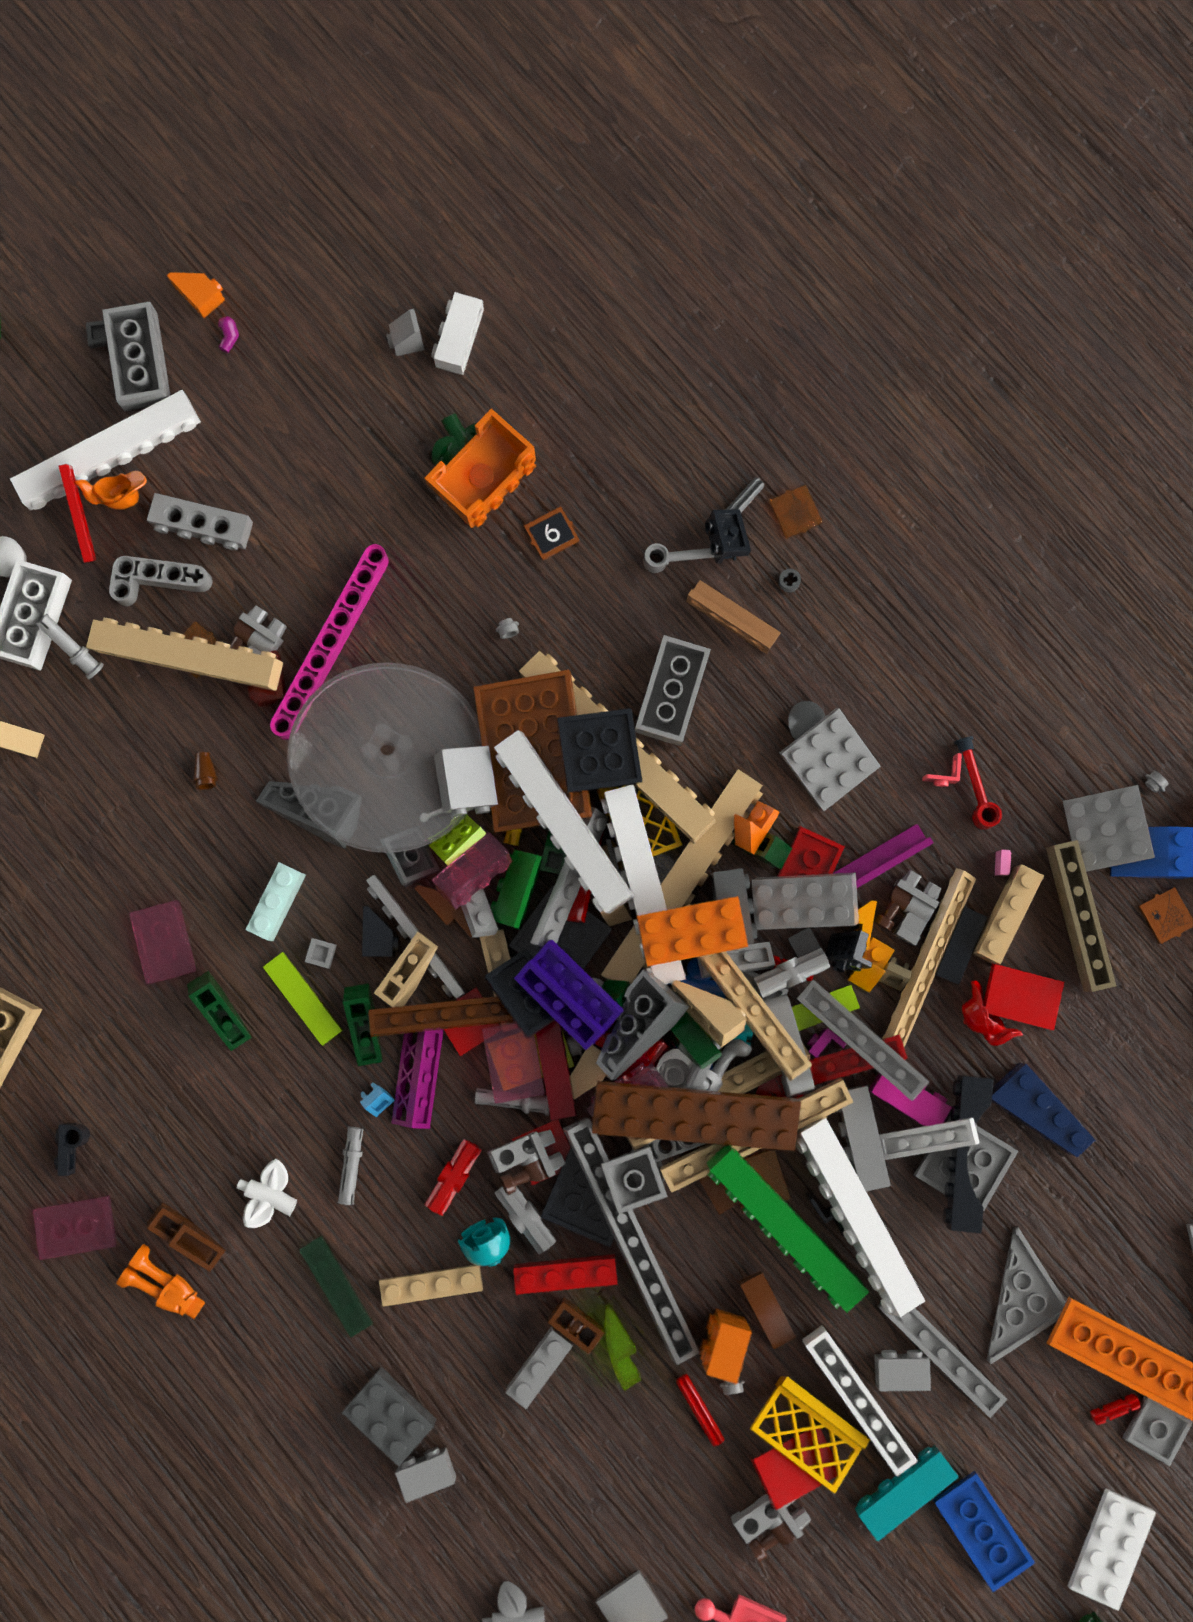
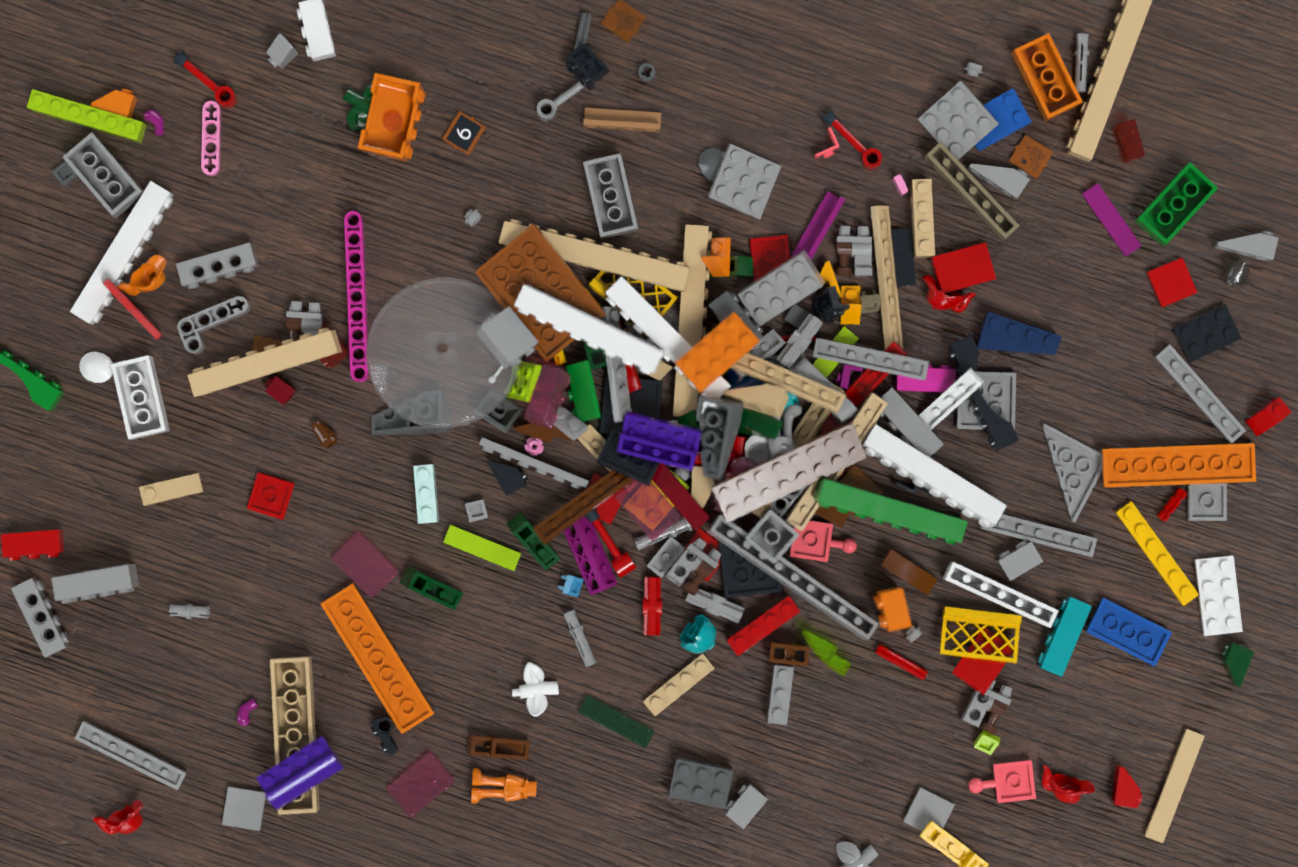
camera: 30 degrees left, 5 degrees up
(77, 654) = (191, 404): light grey pin -> none
(106, 805) = (270, 496): none -> red tile
(112, 1056) = (377, 658): none -> orange plate
(157, 285) = (86, 116): none -> lime brick
(185, 695) = (279, 390): none -> dark red brick
(279, 386) = (211, 138): none -> bright pink beam
(314, 339) = (183, 61): none -> red piece
(407, 971) = (542, 488): tan slope -> none
(422, 923) = (534, 451): none -> bright pink plate
(447, 1108) = (622, 563): none -> red piece
(501, 1129) = (666, 556): none -> light grey plate
(599, 750) = (585, 266): black plate -> none
(681, 1213) = (816, 541): none -> coral plate
(746, 1565) = (987, 742): none -> lime plate
(1066, 1457) = (1157, 553): none -> yellow plate
(1124, 924) = (1004, 179): none -> light grey slope

